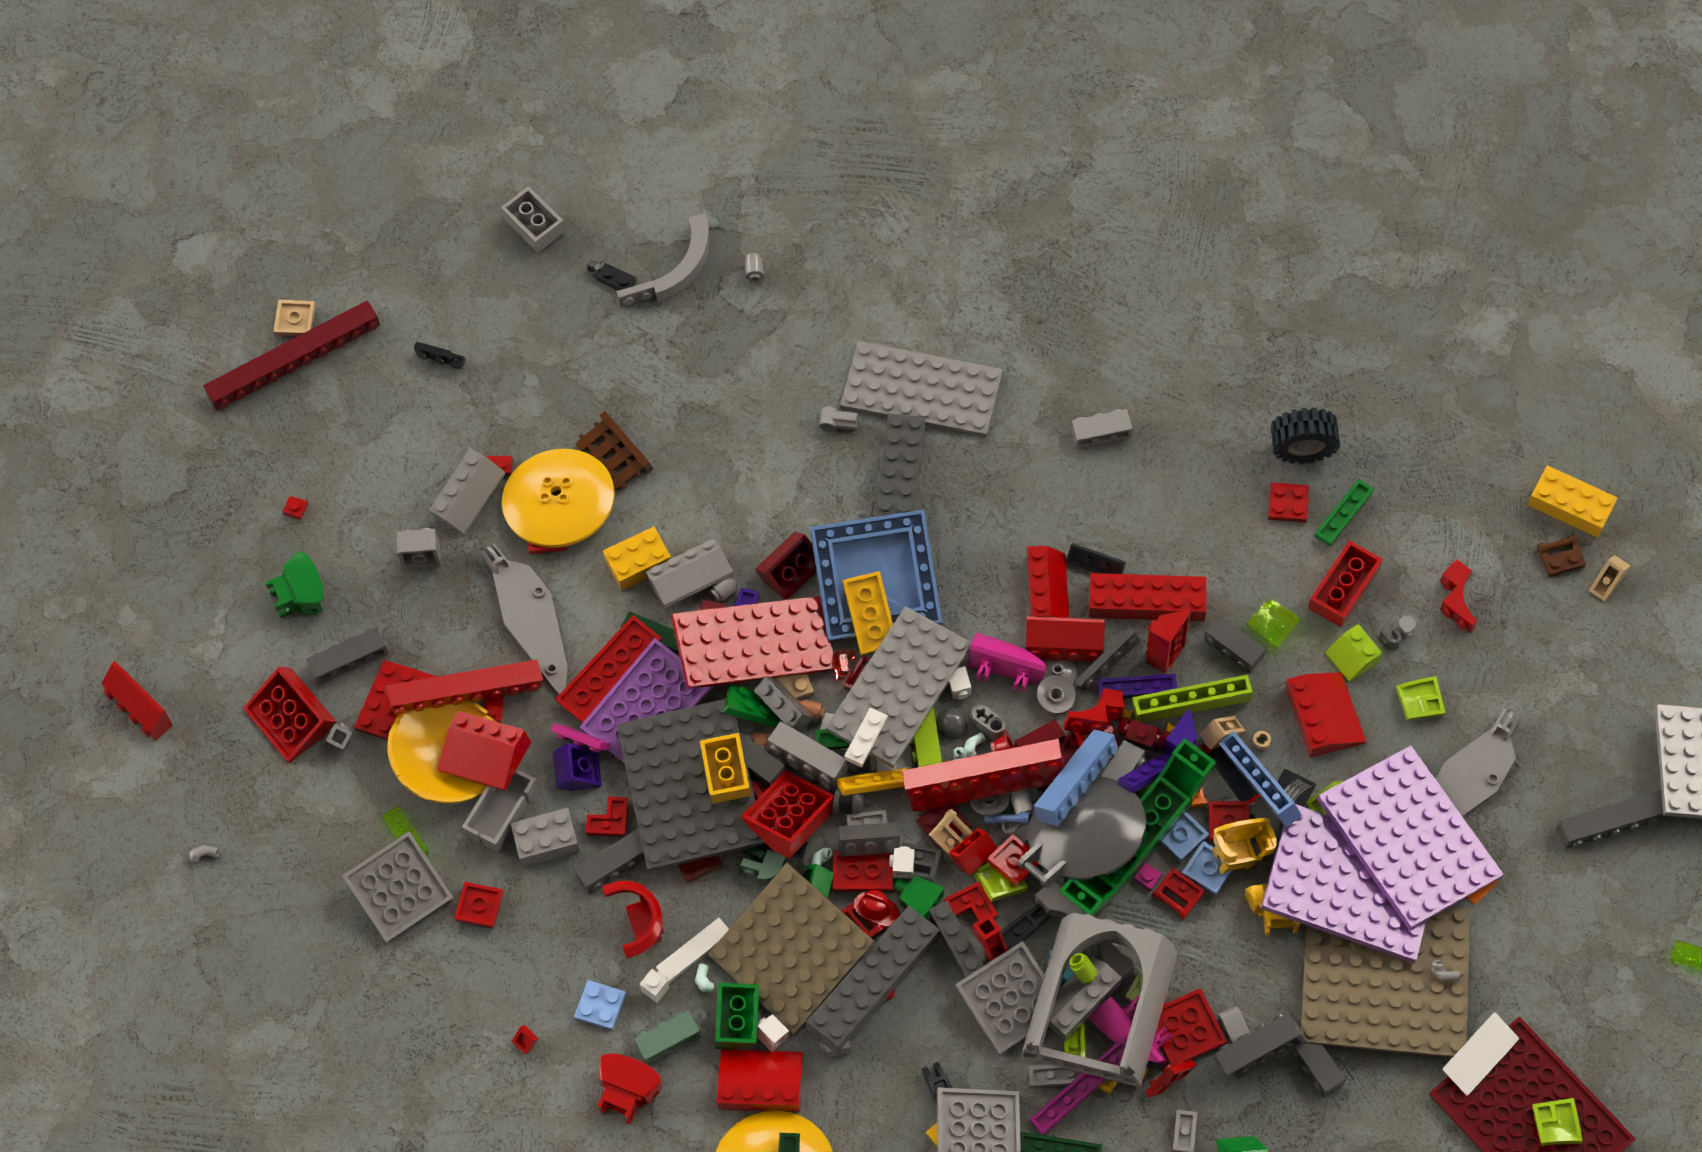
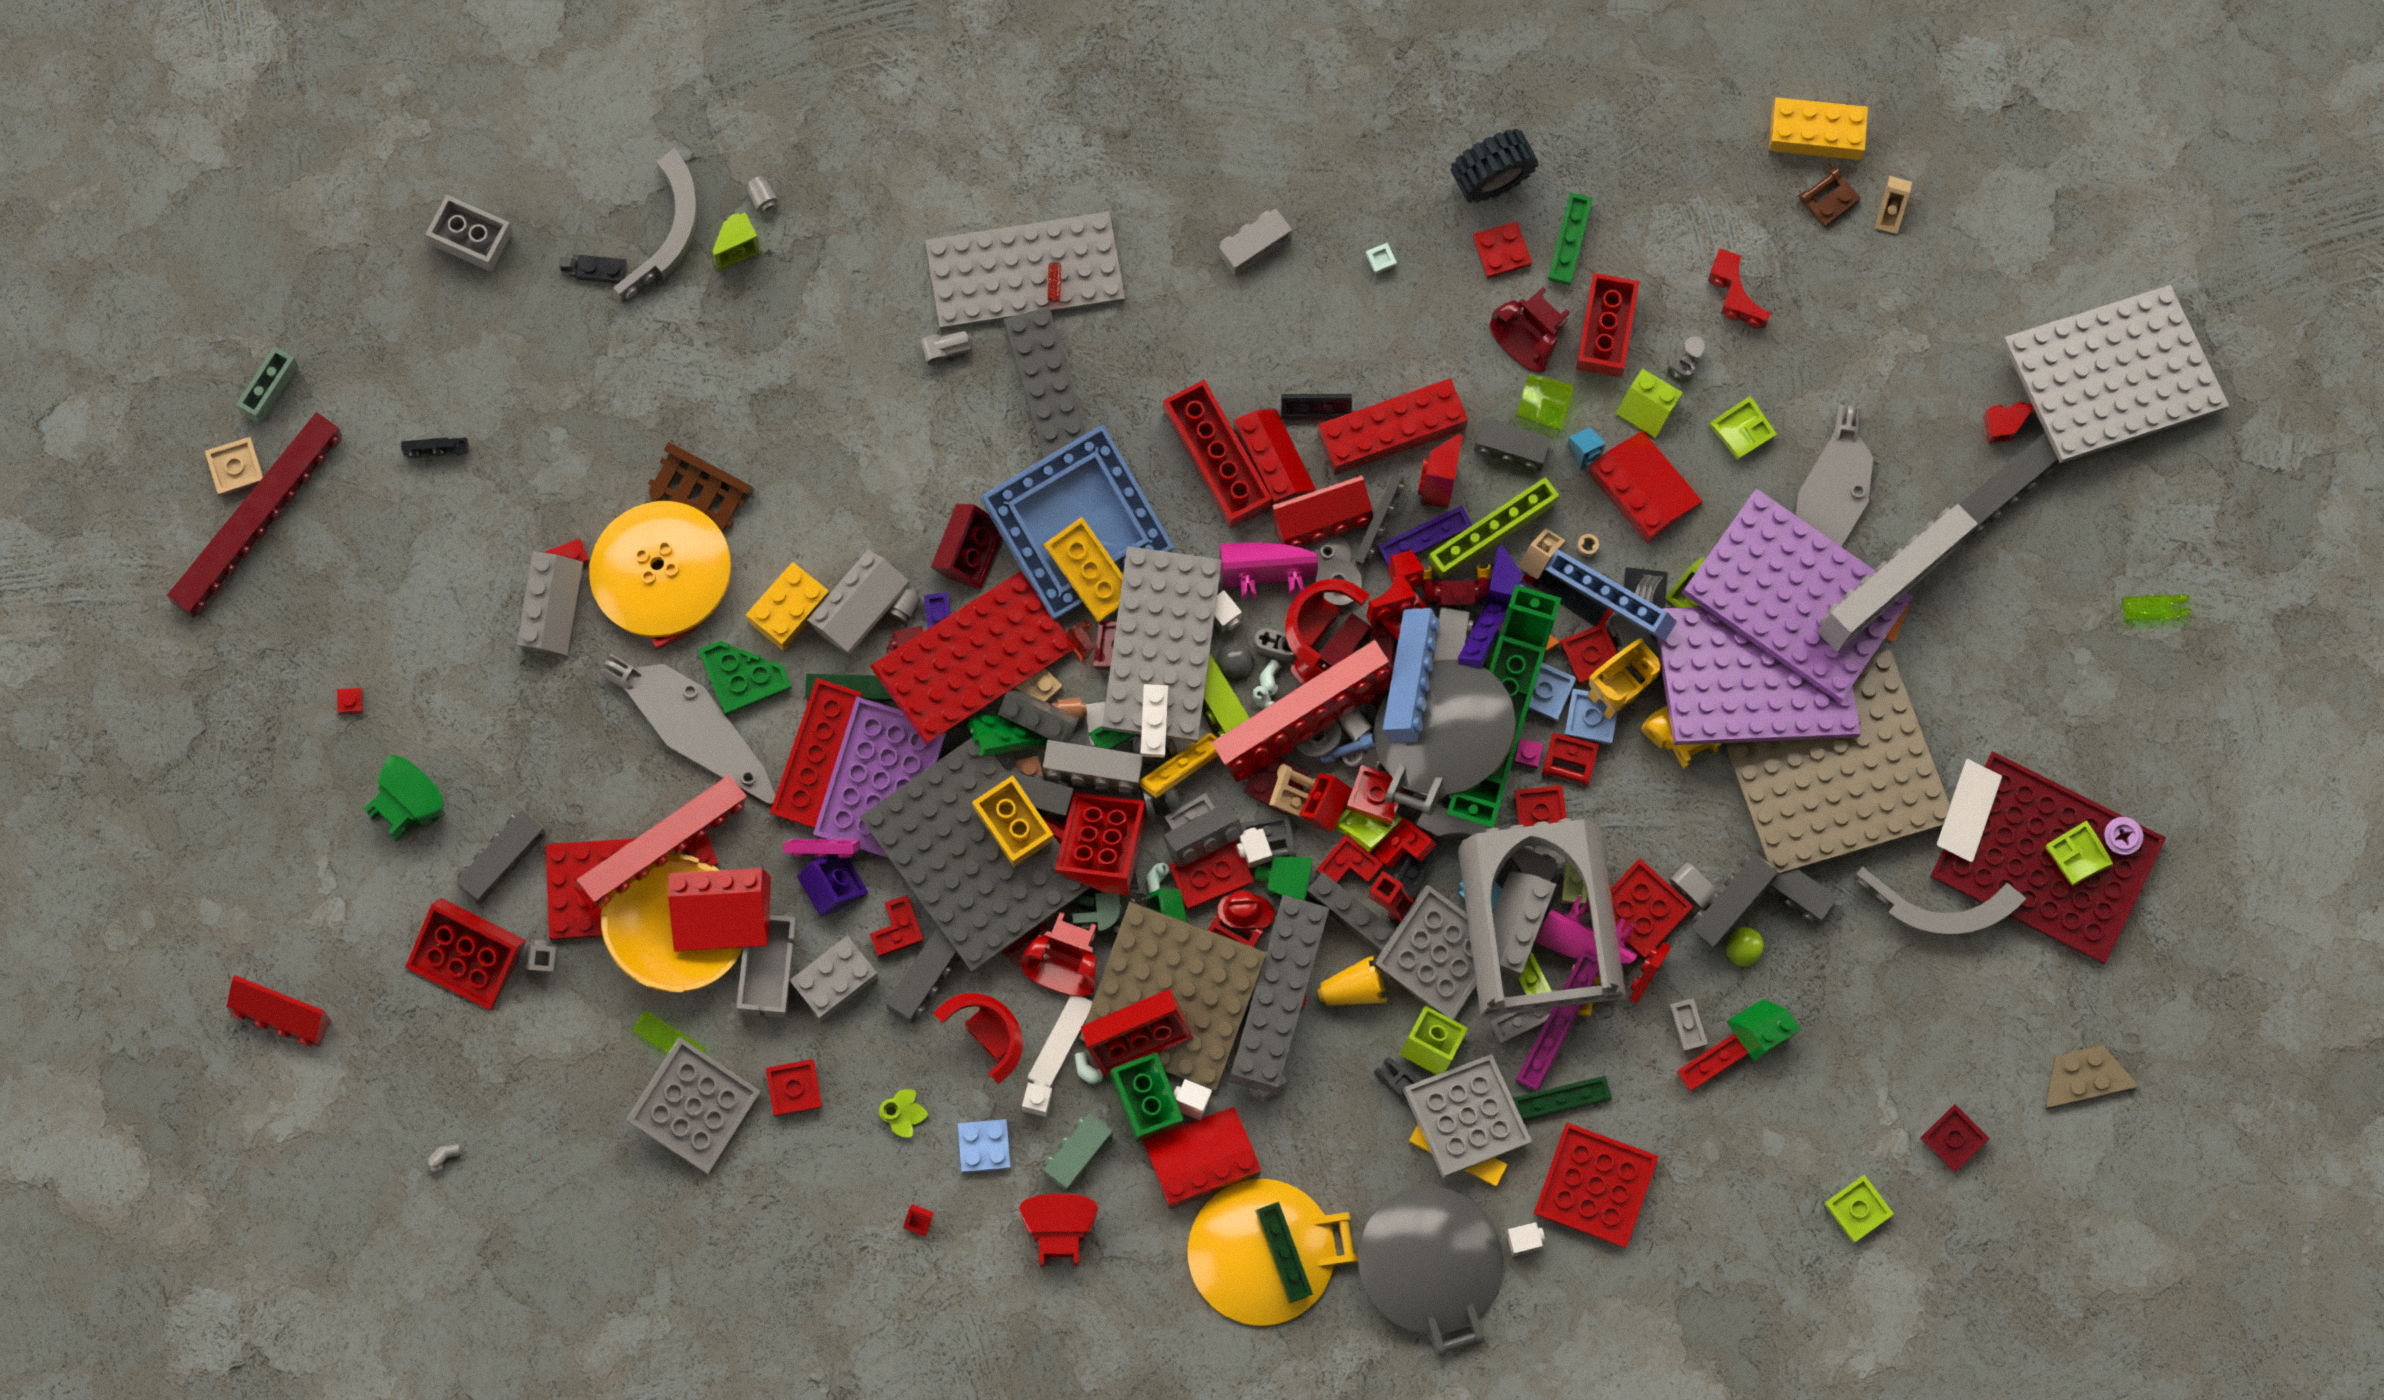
camera: 30 degrees left, 10 degrees up
(342, 270) = (267, 385): none -> sand green brick
(418, 548) = (526, 695): light grey brick -> none
(553, 958) = (906, 1113): none -> lime plate
(581, 595) = (742, 676): none -> green plate
(717, 291) = (735, 241): none -> lime slope
(721, 893) = (1065, 963): none -> red piece
(750, 962) = (1136, 1031): none -> red slope
(935, 996) = (1354, 985): none -> yellow cone
(938, 402) = (1054, 284): none -> clear red piece
(977, 1062) = (1433, 1041): none -> lime slope
(1004, 567) = (1217, 453): none -> red brick
(1022, 710) = (1313, 615): none -> red piece
(1022, 902) = (1402, 839): none -> red plate
(1083, 968) = (1512, 891): lime brick -> none
(1140, 915) = (1539, 805): none -> red plate
(1192, 475) = (1381, 258): none -> light aqua plate
(1256, 1089) = (1745, 946): none -> lime hair
(1283, 568) = (1529, 332): none -> dark red piece
(1290, 665) = (1586, 447): none -> dark azure slope
(1443, 975) = (1895, 738): light grey arm -> none
(1453, 1140) = (1970, 920): none -> light grey arch
(1493, 850) = (1896, 576): none -> light grey brick
(1606, 1117) = (2125, 825): none -> lavender gear
(1634, 771) = (2005, 422): none -> red slope

